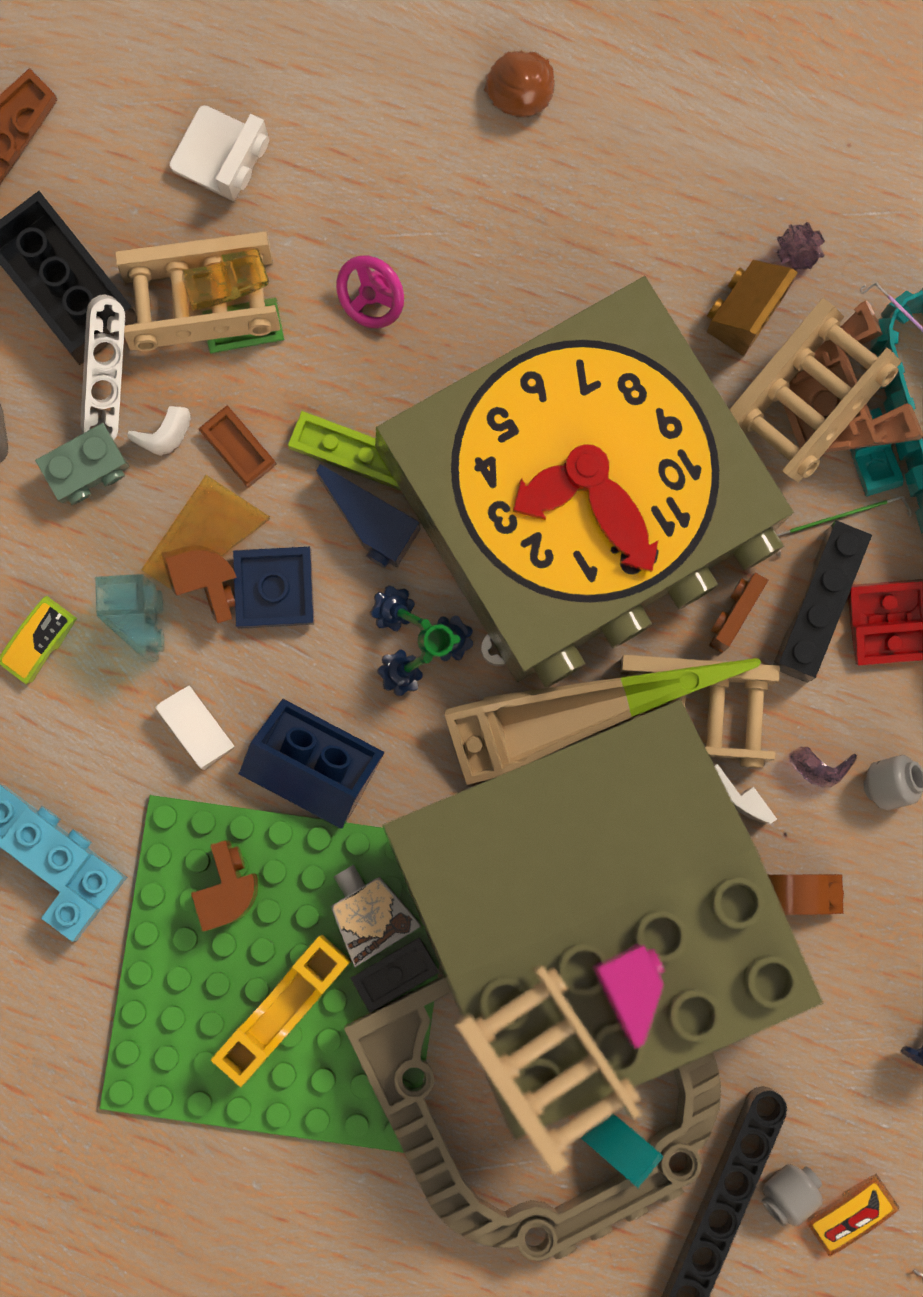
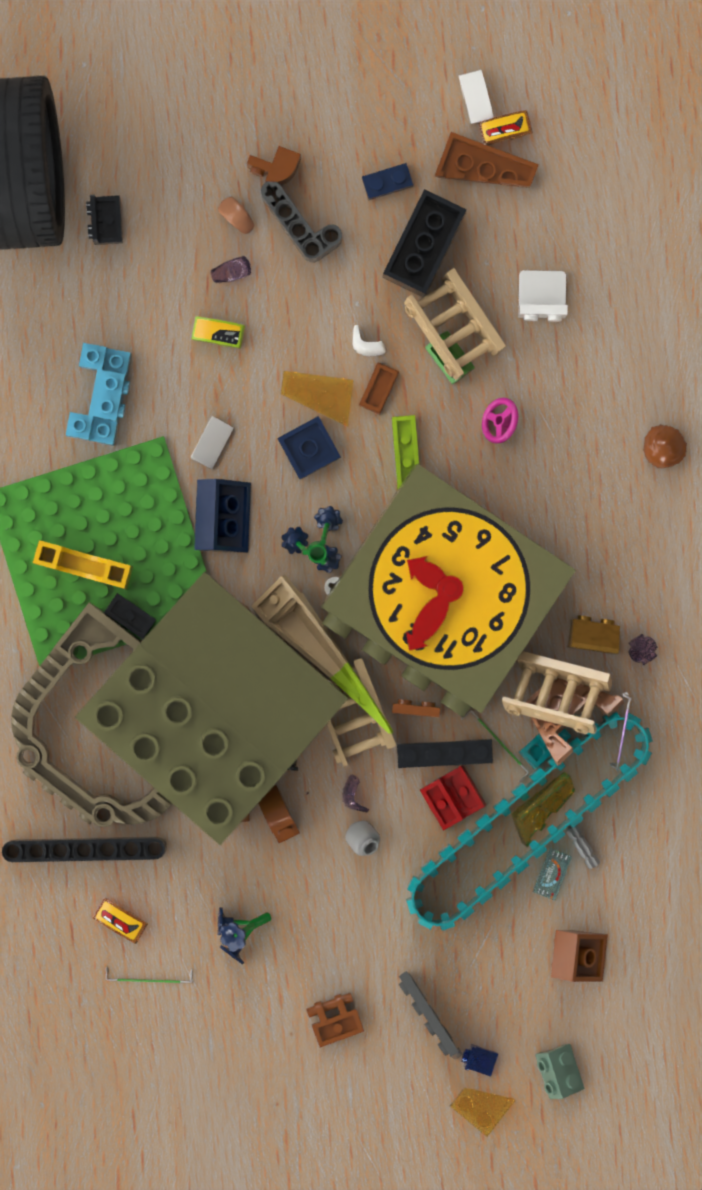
camera: 65 degrees right, 5 degrees up
(83, 465) = (326, 309): sand green bracket -> none
(97, 371) = (383, 297): white beam -> none
(130, 609) = (255, 377): clear light blue slope -> none
(198, 568) = (298, 402): dark orange brick -> none
(223, 282) = (467, 339): clear yellow slope -> none
(231, 898) = (129, 509): dark orange brick -> none
(370, 915) = (155, 587): torso -> none
(378, 526) = (370, 487): dark blue slope -> none
(529, 1106) = (107, 694): tan fence -> none
(623, 1149) = (97, 780): teal slope -> none
(632, 989) = (178, 740): dark pink slope -> none
(749, 802) = (313, 762): white slope -> none
(792, 1195) = (115, 883): light grey head -> none

